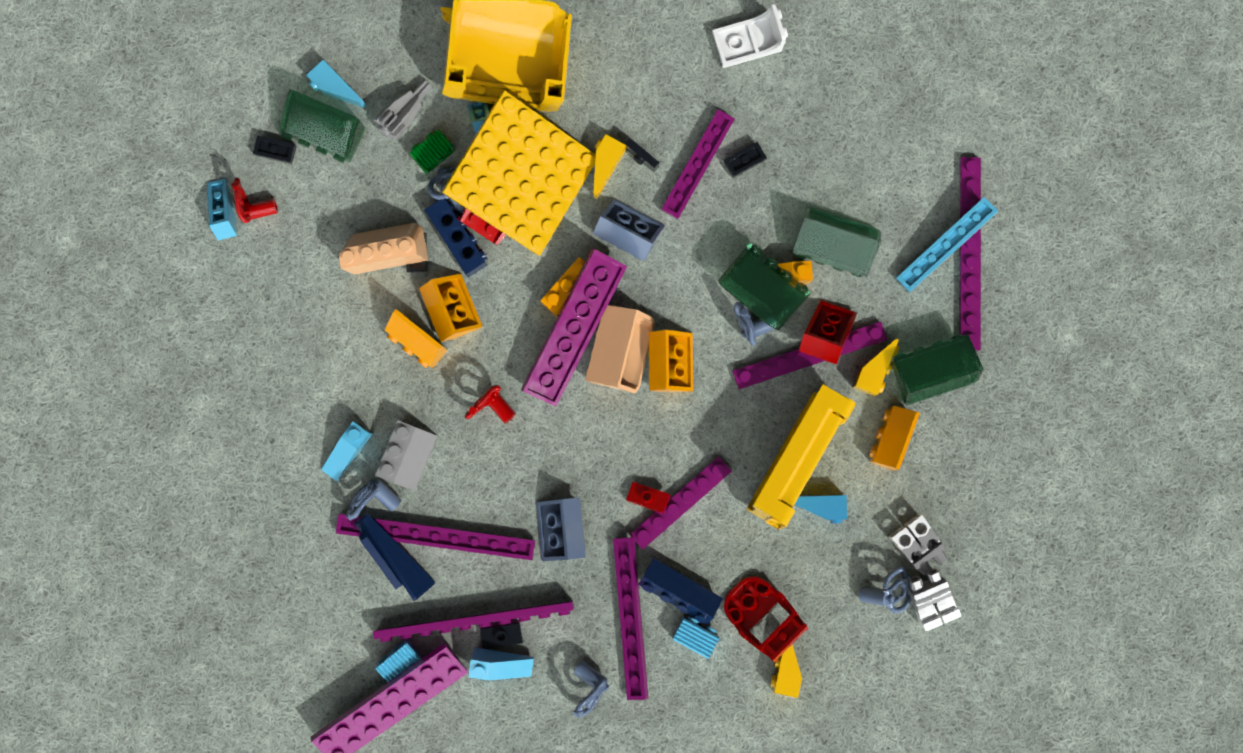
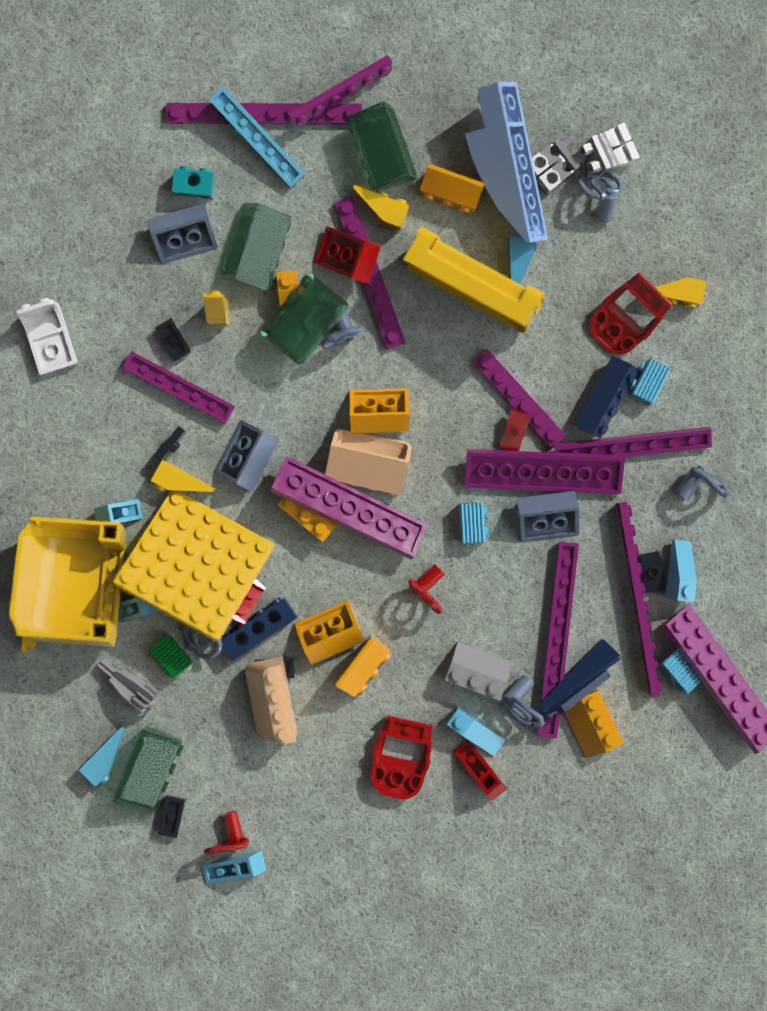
camera: 90 degrees left, 5 degrees up
(305, 370) = (400, 776): none -> red slope
(306, 455) = (480, 770): none -> red slope
(346, 571) = (593, 725): none -> light orange slope
(556, 452) = (472, 522): none -> medium azure brick
(575, 104) = (119, 512): none -> medium azure slope
(606, 526) = (544, 471): none -> magenta plate
(775, 200) = (216, 308): none -> yellow slope
(850, 170) = (182, 233): none -> sand blue slope
(895, 192) = (203, 189): none -> teal brick
(923, 492) = (505, 159): none -> light blue slope
(992, 327) = (340, 91): none -> magenta plate

